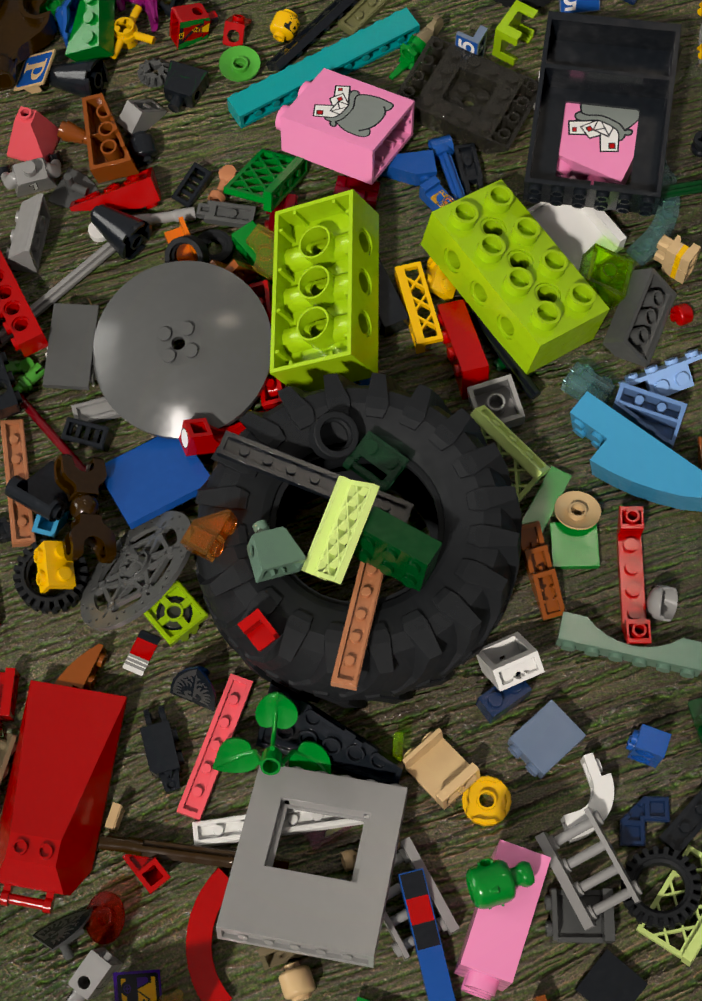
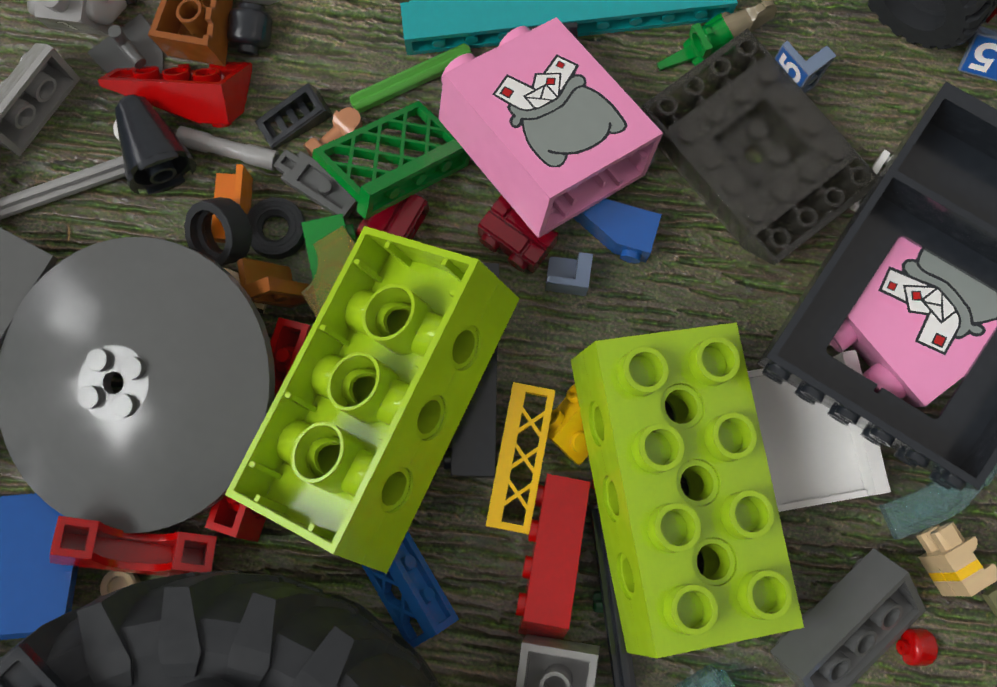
camera: 25 degrees right, 10 degrees up
(250, 138) = (405, 80): none -> bright green axle
(398, 205) = (569, 275): none -> sand blue panel
(434, 194) = (634, 293): blue leg -> none
(443, 151) = (677, 217): blue axle -> none
(468, 166) = (703, 263): black hinge -> none
(511, 30) = (875, 71): lime panel -> none
(606, 273) = (827, 541): clear neon green brick -> none

